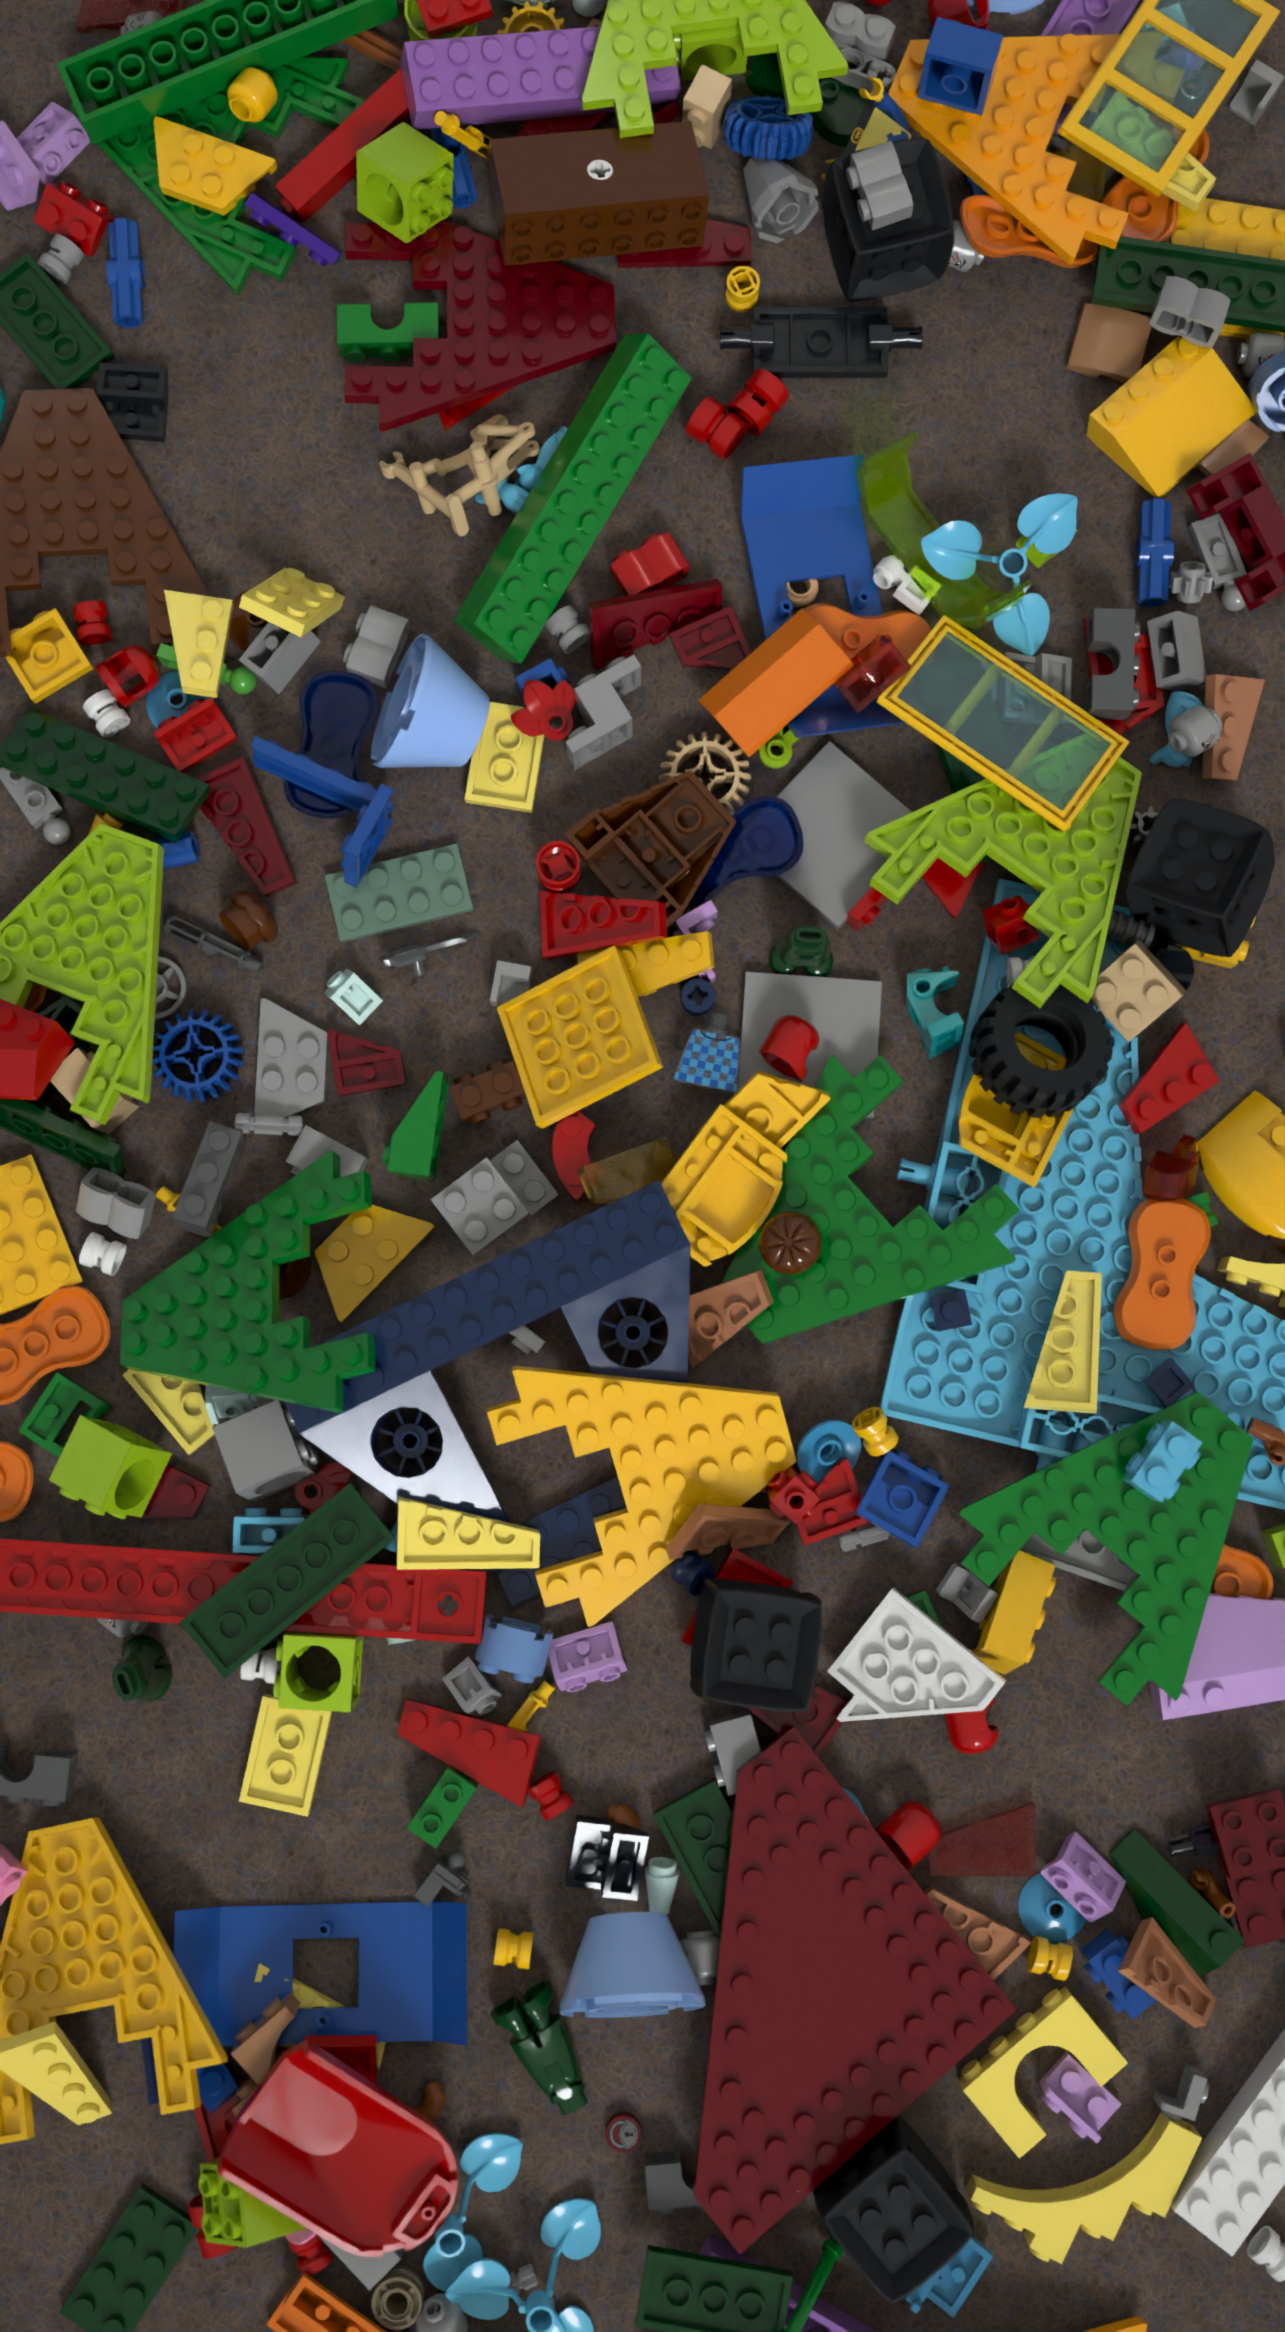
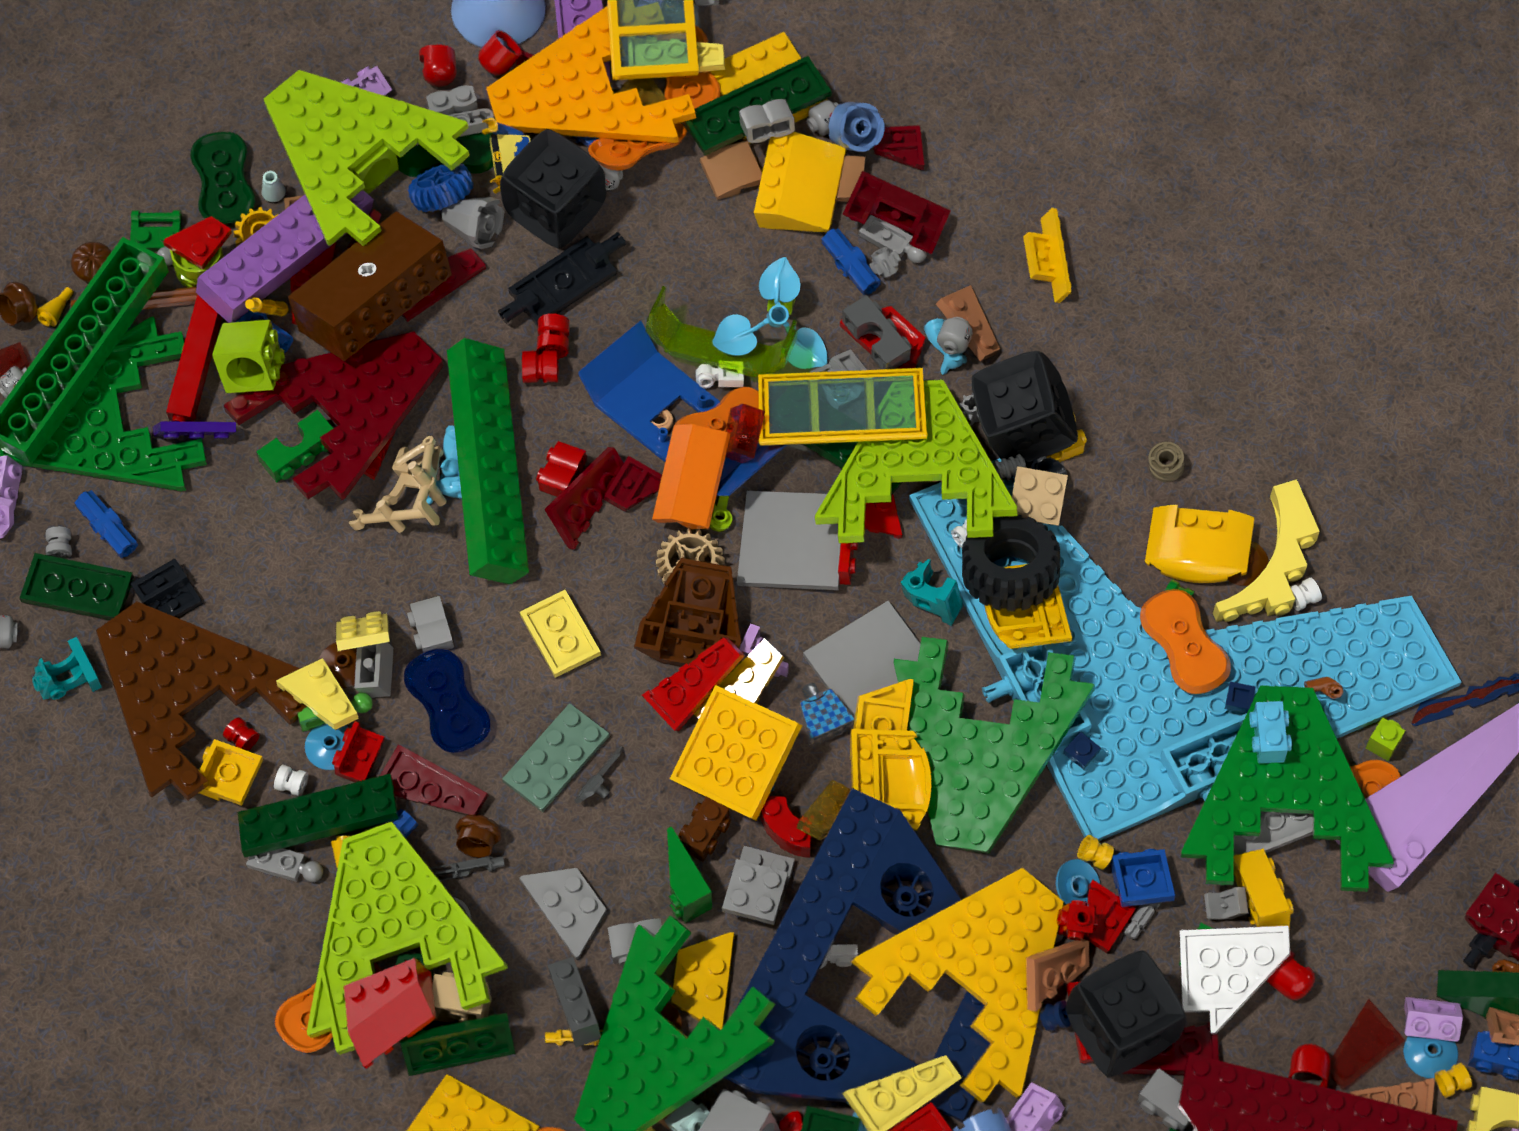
camera: 35 degrees left, 20 degrees down
(73, 216) = (41, 515): red bracket -> none
(102, 1254) = (539, 1099): white wheel -> none
(114, 1202) = (525, 1060): light grey brick -> none
(126, 665) = (283, 739): red helmet -> none
(194, 1039) = (523, 921): blue gear -> none
(206, 168) = (112, 431): yellow wing -> none
(252, 95) = (113, 371): yellow head -> none
(268, 1124) = (585, 944): light grey axle -> none
(332, 784) = (471, 719): blue bracket -> none
(352, 995) = (575, 834): light aqua bracket -> none
(363, 1065) = (614, 870): dark red wing -> none
(431, 713) = (495, 634): light blue cone -> none
(509, 982) = (665, 757): light grey panel -> none
(544, 672) = (545, 575): blue bracket -> none
(544, 705) = (562, 586): red plate -> none
(558, 867) = (643, 670): red wheel -> none
(567, 628) = (540, 536): light grey wheel -> none
(603, 711) = (600, 564): light grey bracket -> none
(697, 1003) = (783, 692): dark blue wheel -> none
(707, 104) = (394, 195): tan brick -> none
(724, 1311) = (951, 845): nougat wing -> none
(745, 296) = (495, 288): yellow wheel -> none
(761, 844) = (755, 570): clear blue plate -> none
(790, 1243) = (957, 775): reddish brown piece -> none
(792, 1041) = (864, 663): red helmet -> none
(802, 947) = (828, 609): dark green piece -> none
(880, 185) = (541, 169): light grey brick -> none
(959, 65) = (532, 81): blue brick -> none
(1006, 925) = (936, 513): red brick -> none
(1070, 1353) = (1171, 721): light yellow wing -> none
(1169, 1082) = (1100, 536): red wing -> none
(1173, 1174) = (1144, 581): clear red brick -> none
(1177, 651) = (908, 303): light grey brick -> none

